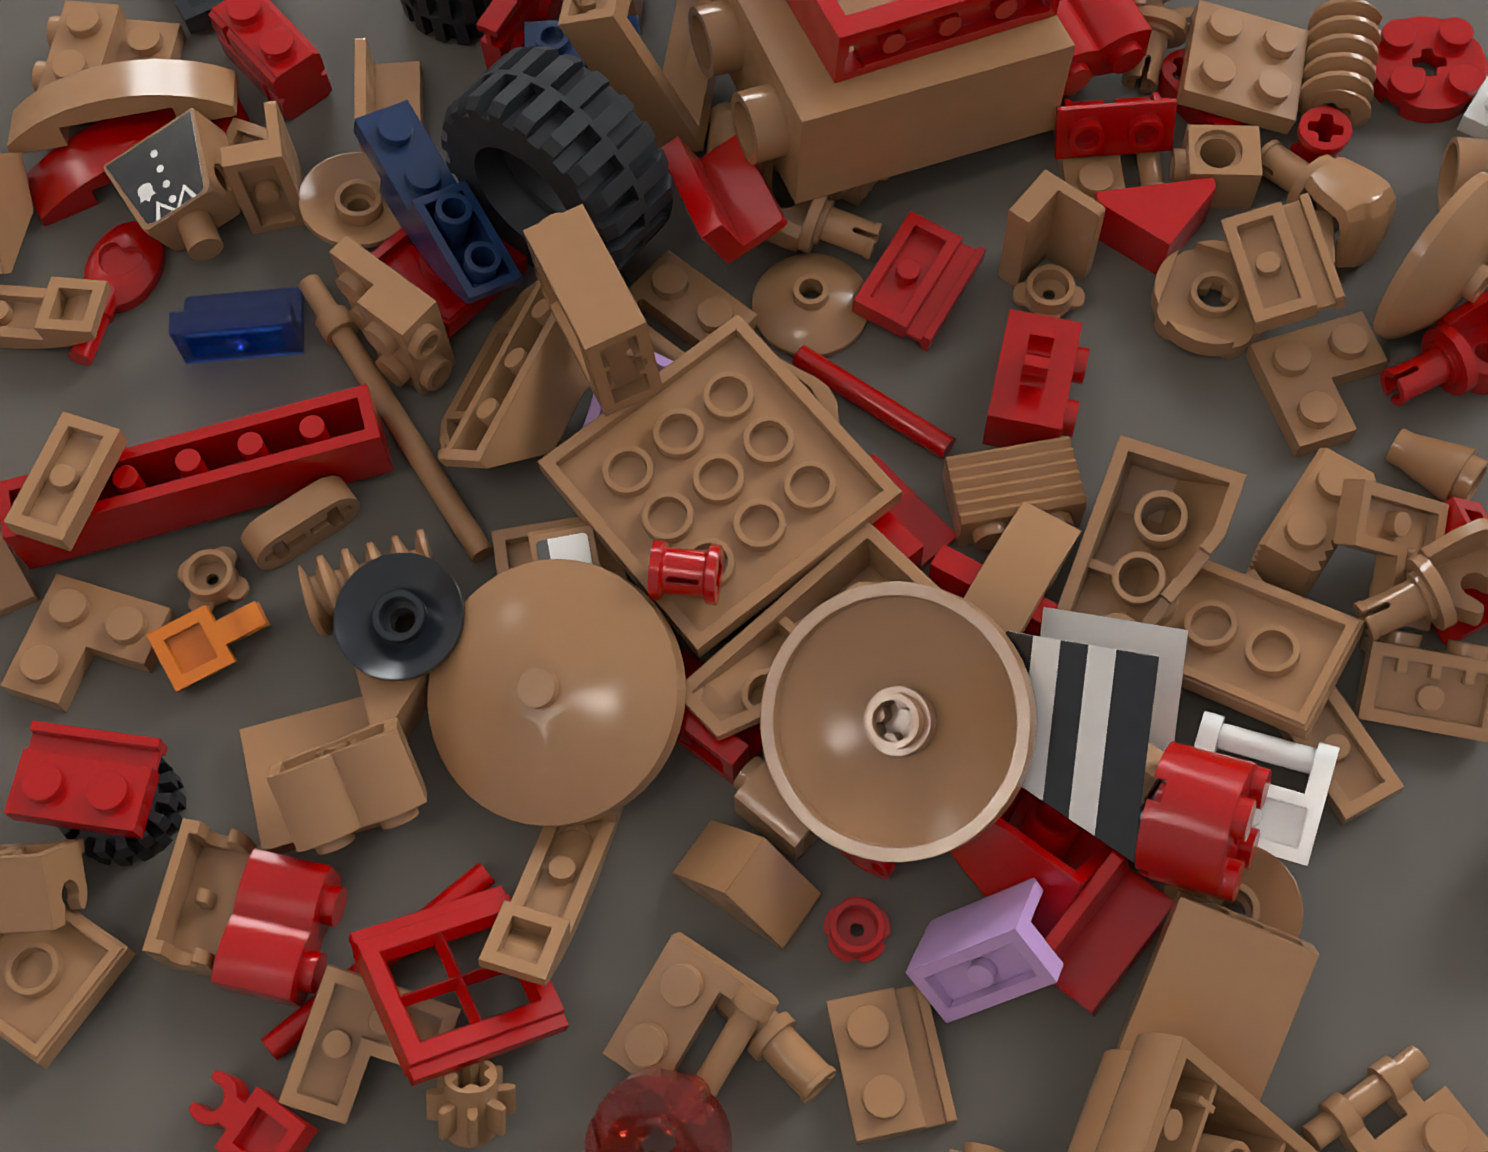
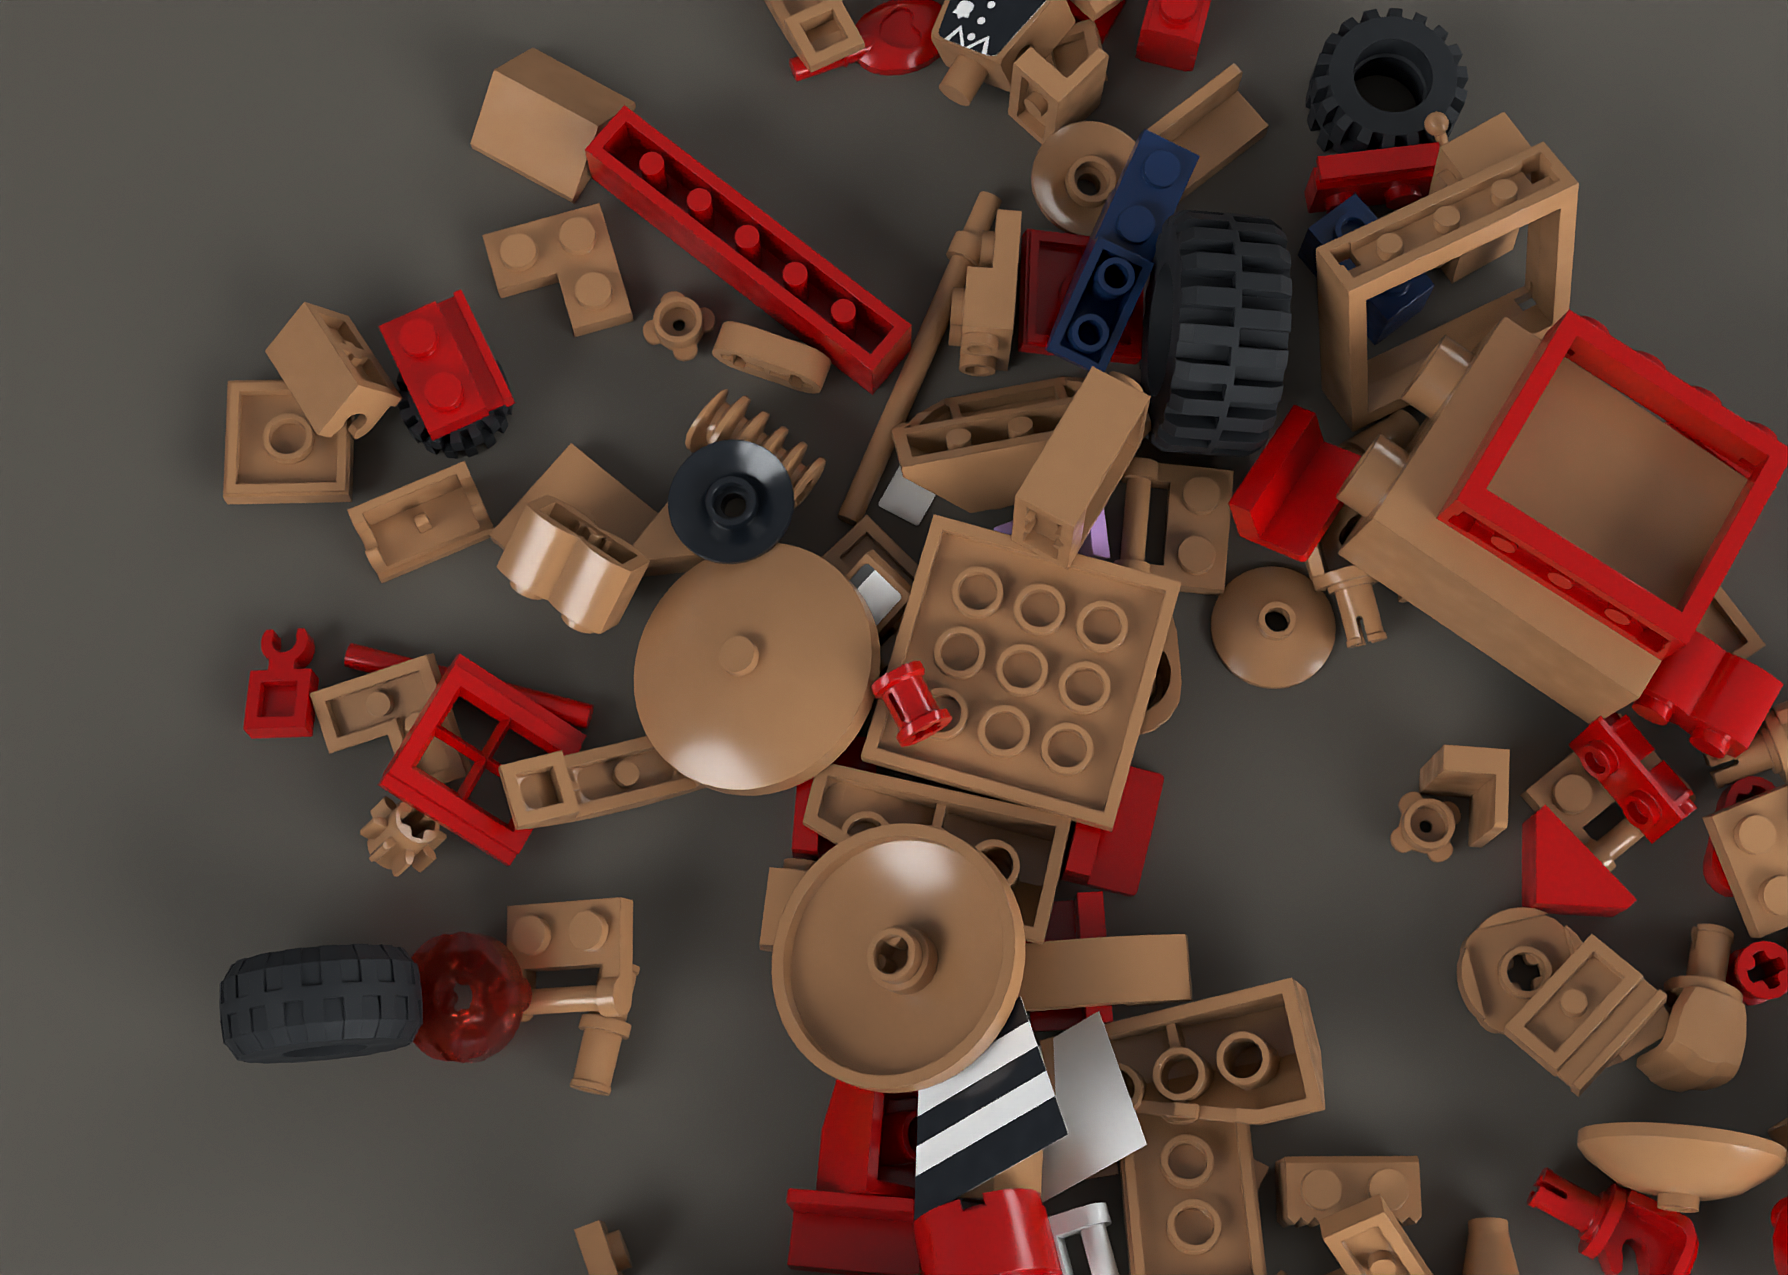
camera: 50 degrees right, 10 degrees up
(66, 481) = (658, 162): medium nougat plate -> none
(199, 645) = (617, 361): orange plate -> none
(239, 325) = (915, 171): clear blue panel -> none
(279, 928) = (437, 594): red brick -> none
(496, 495) = (906, 499): none -> white sticker
(749, 881) = (715, 925): medium nougat slope -> none
(856, 912) = (730, 1019): red plate -> none
(874, 402) = (1213, 743): red bar -> none
(890, 1063) = (648, 1132): medium nougat plate -> none
(918, 280) = (1356, 705): red plate -> none
(984, 954) = (769, 1144): lavender panel -> none
(992, 484) = (1219, 921): medium nougat brick -> none
(1034, 380) = (1321, 870): red brick -> none
(1234, 160) = (1693, 896): medium nougat brick -> none
(1301, 378) = (1506, 1094): medium nougat plate -> none

